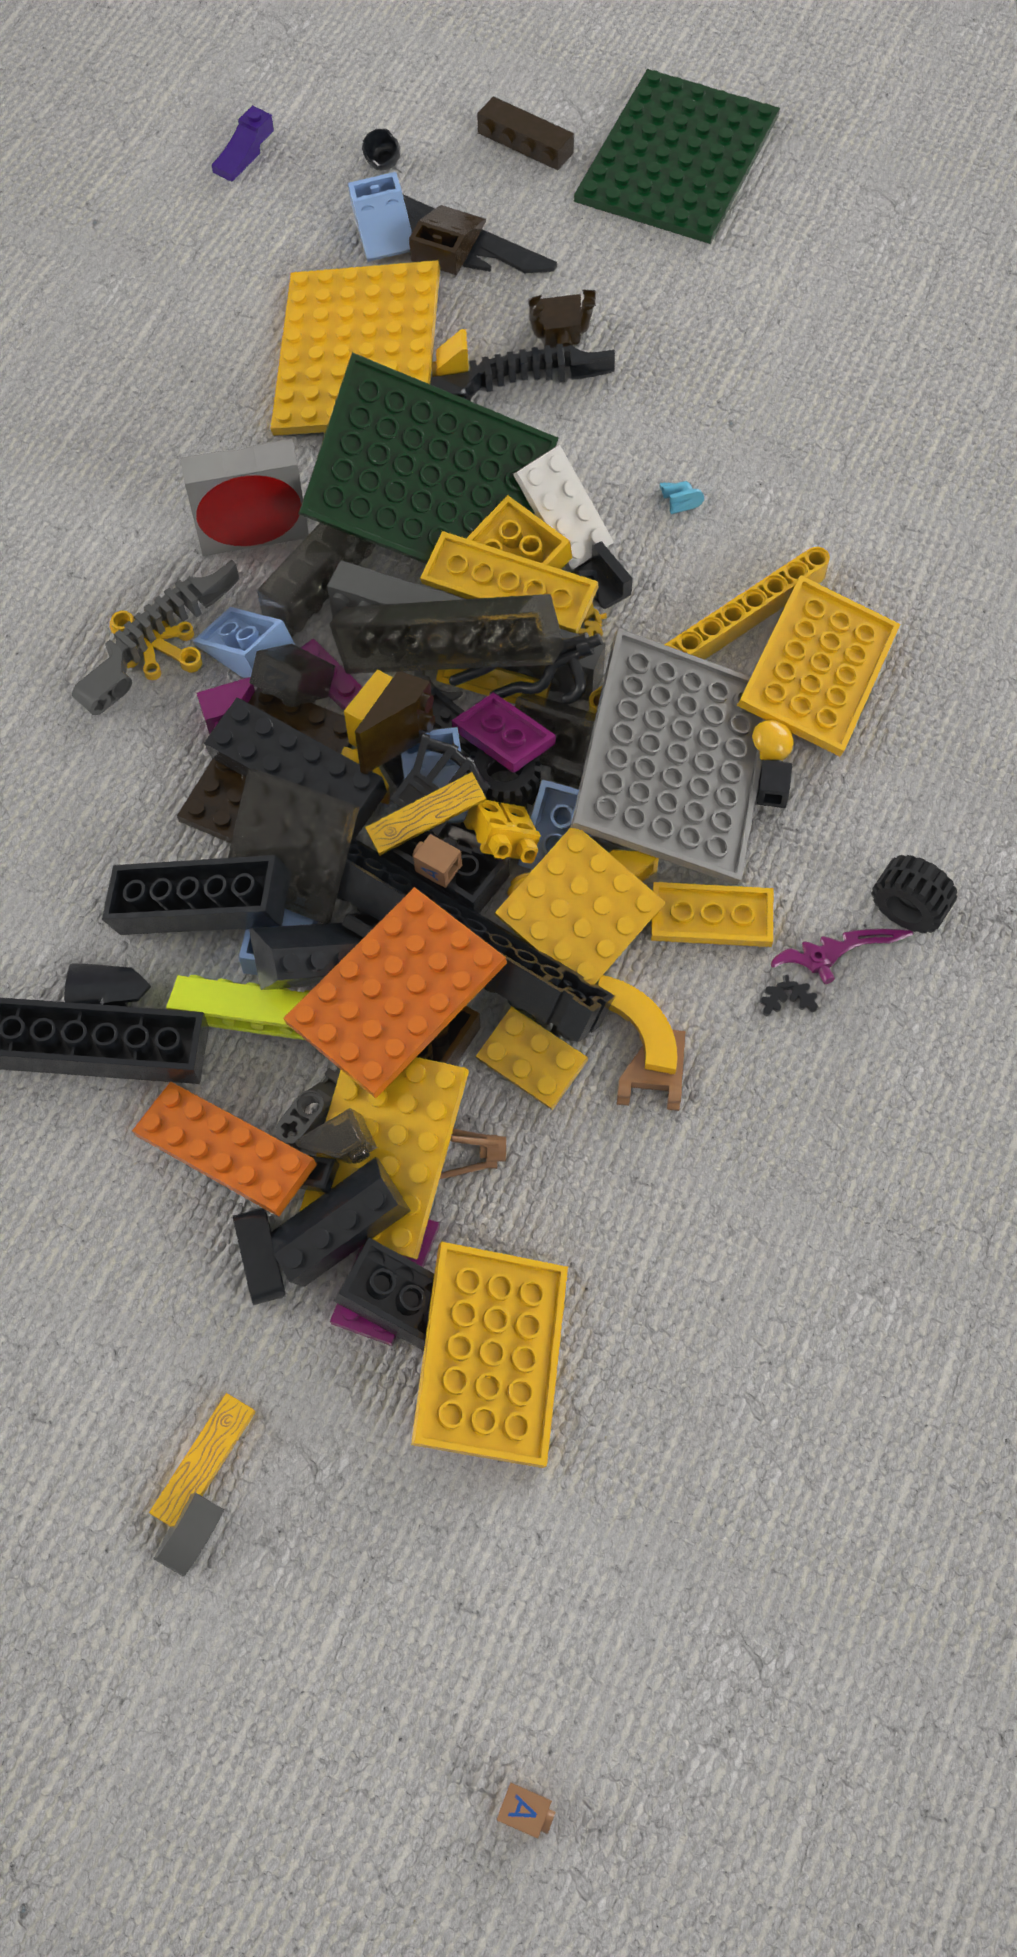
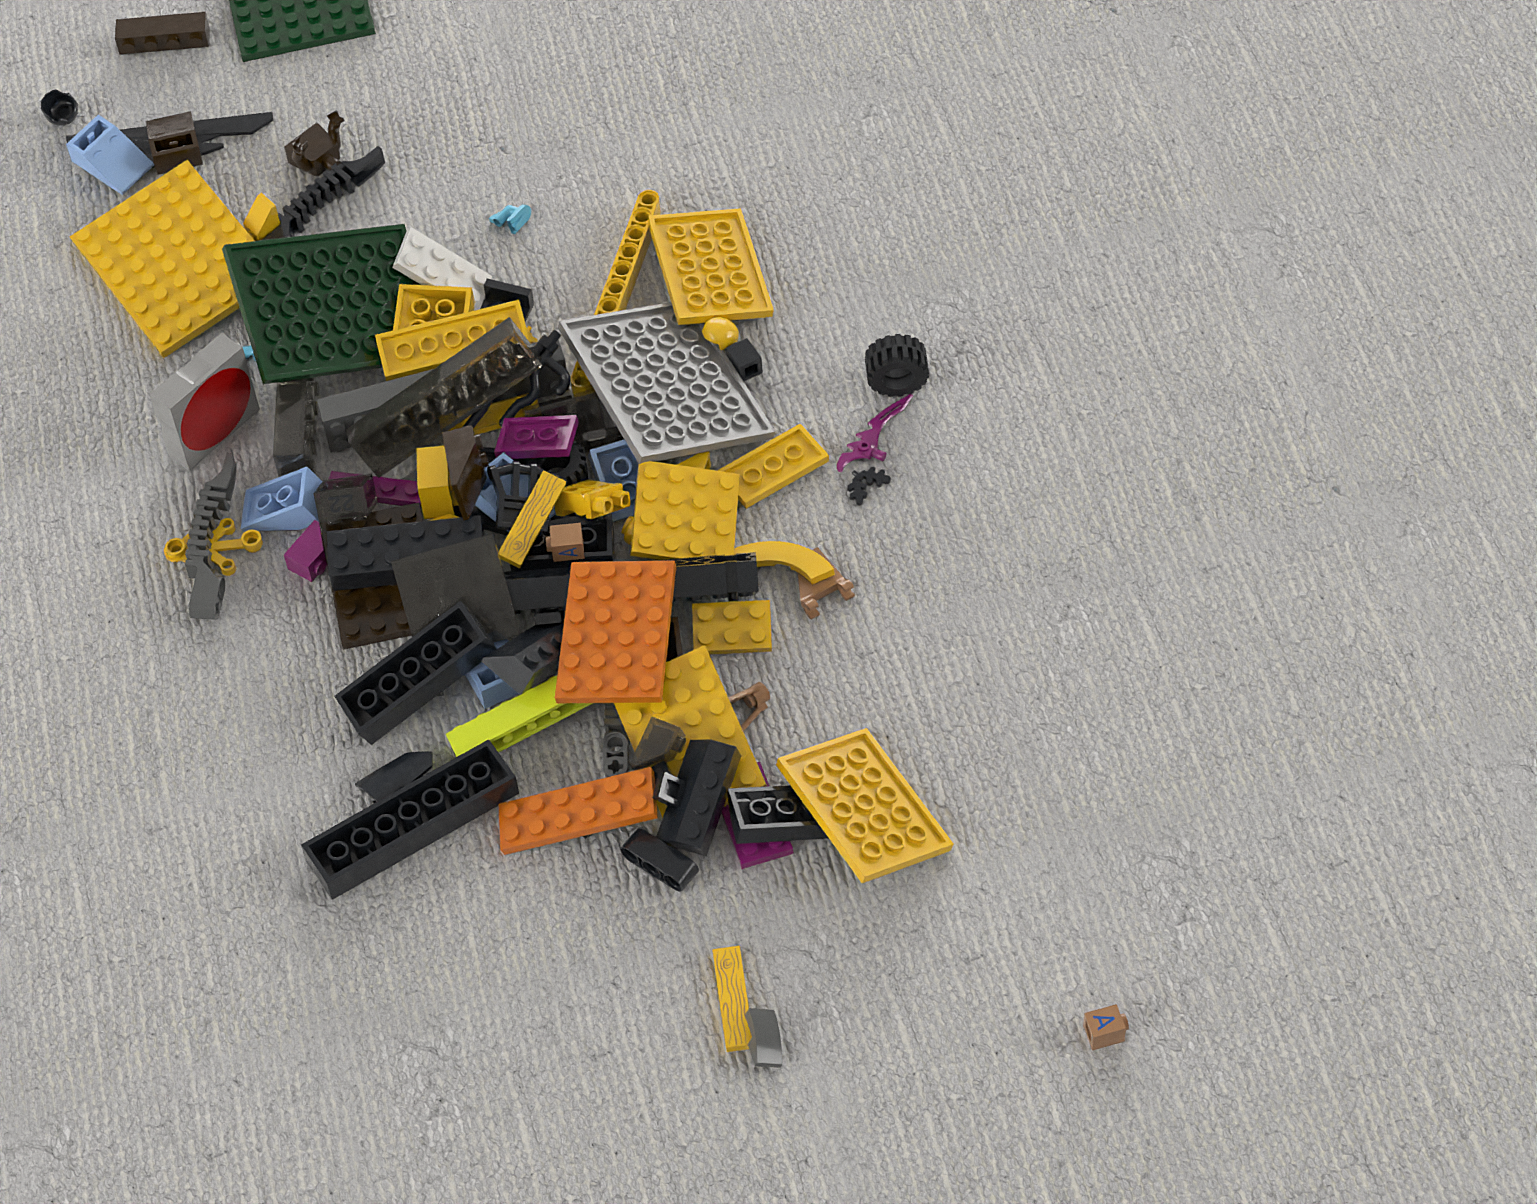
camera: 35 degrees left, 10 degrees down
(309, 1197) = (669, 789): none -> black plate

